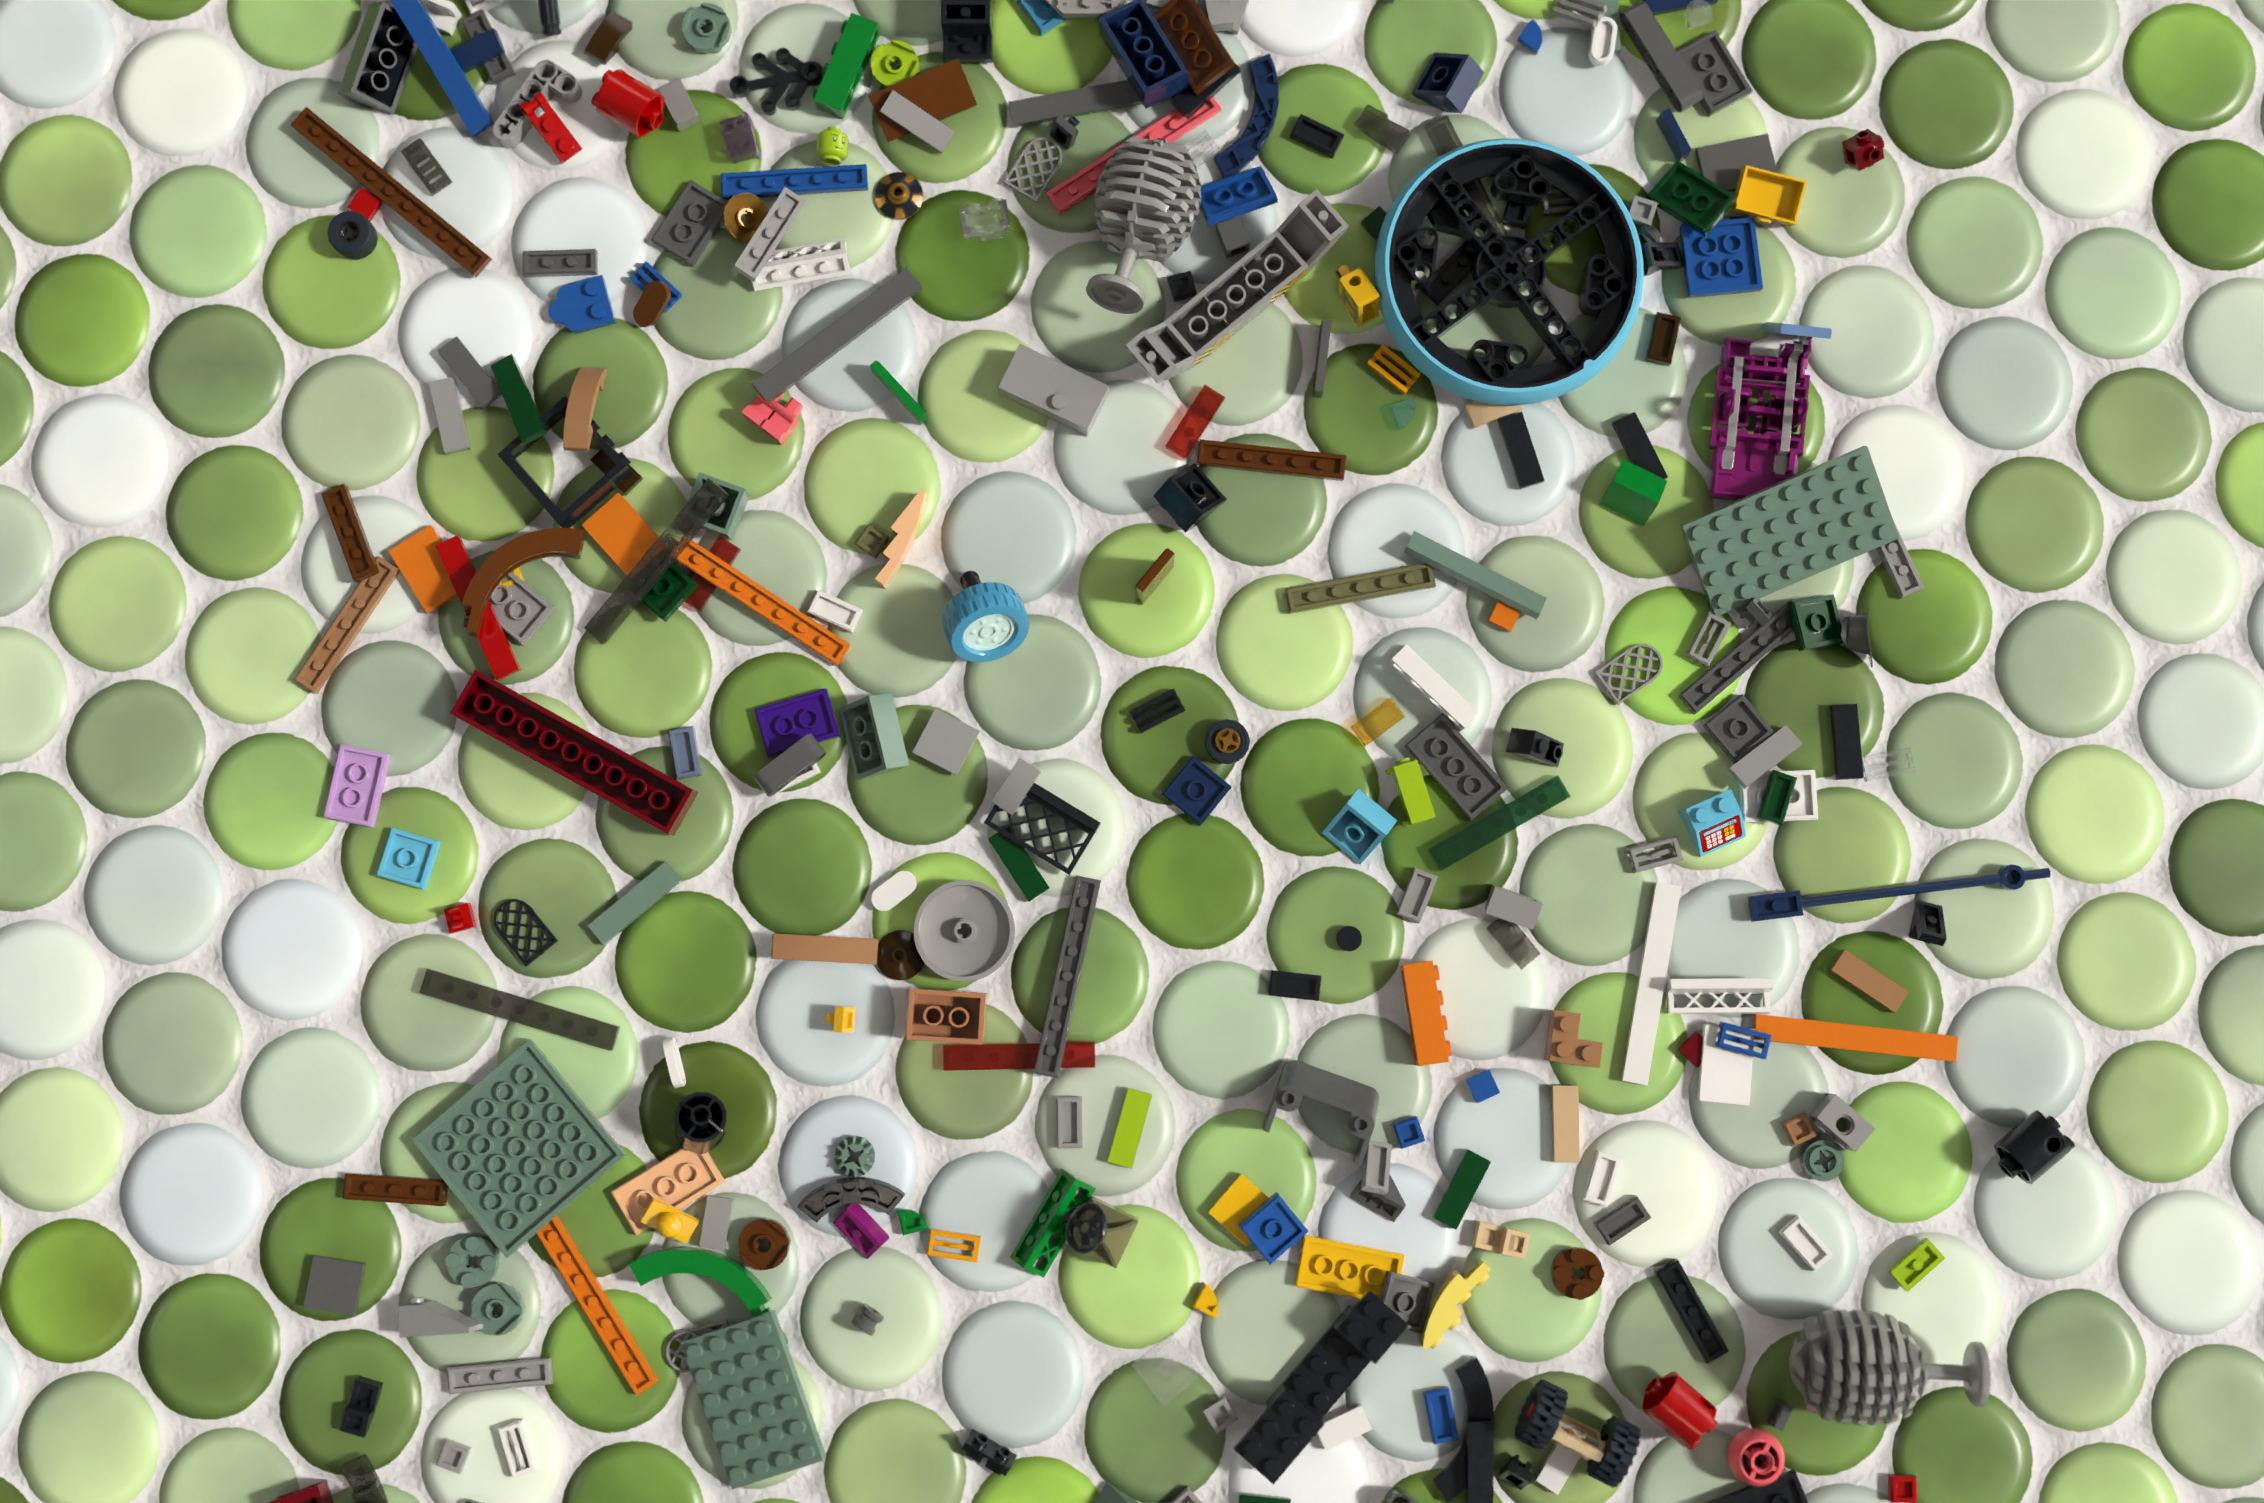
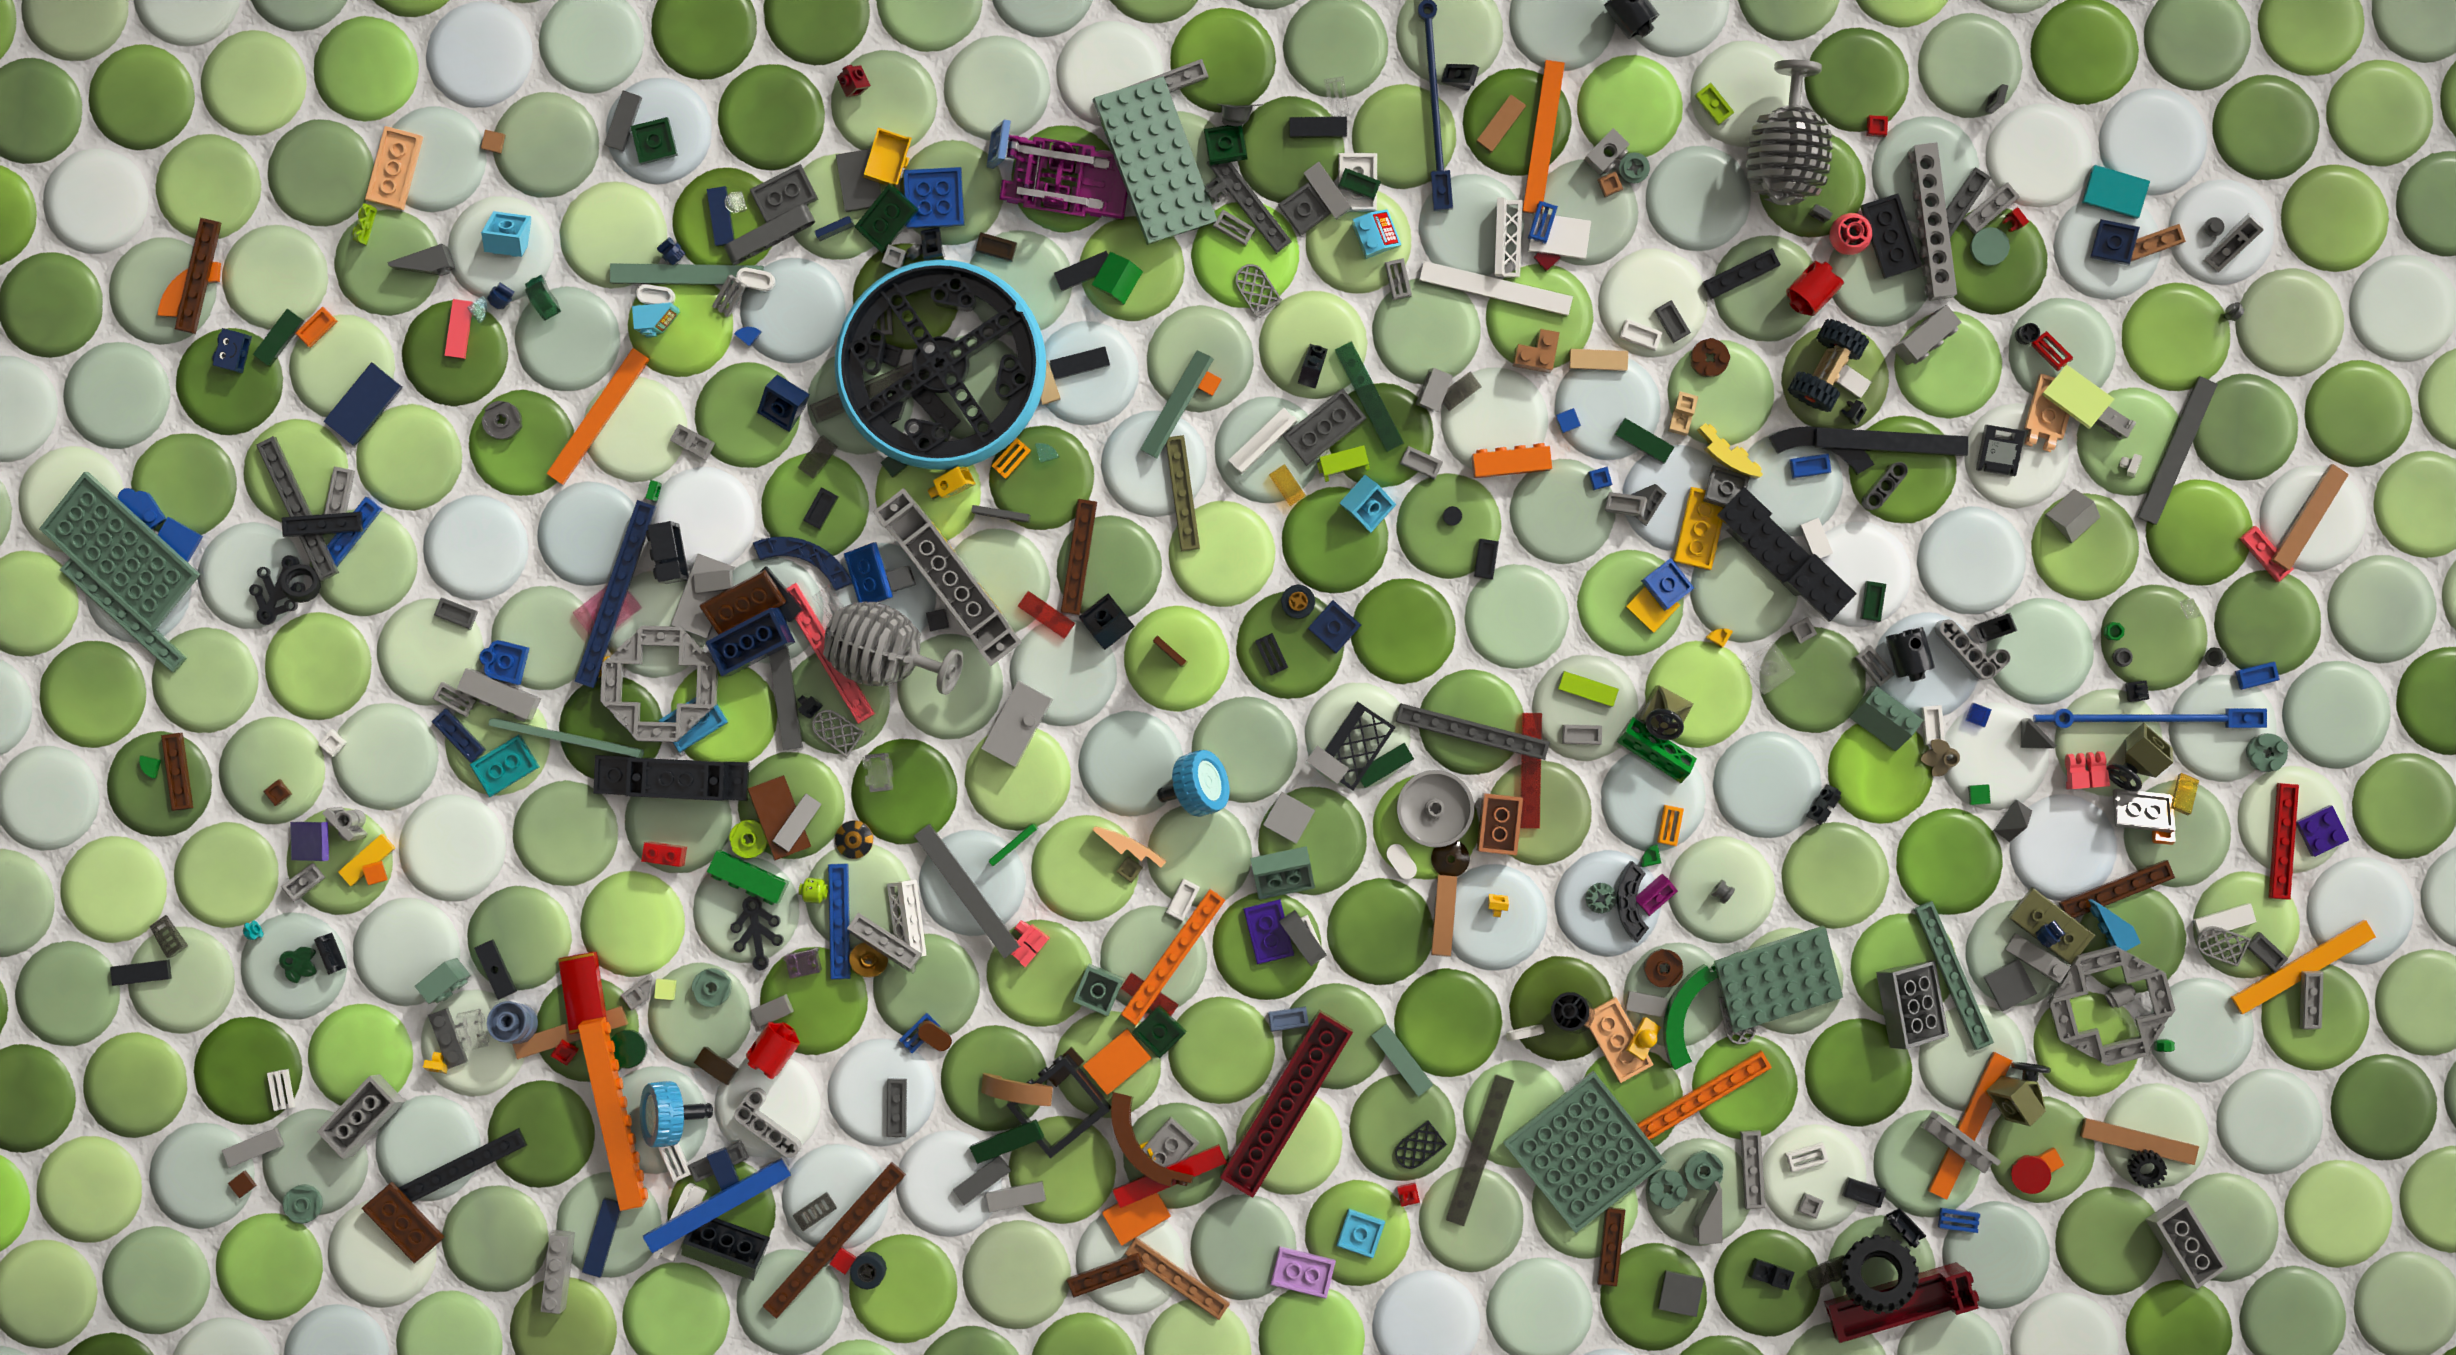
camera: 85 degrees left, 5 degrees up
(551, 128) = (789, 1111): red plate -> none
(583, 305) = (932, 1090): blue plate -> none
(656, 561) = (1140, 1036): clear smoke tile -> none
(691, 223) = (869, 1003): dark grey tile -> none
(1302, 1079) = (1559, 552): dark grey windscreen -> none
(1805, 1243) = (1694, 185): white tile -> none

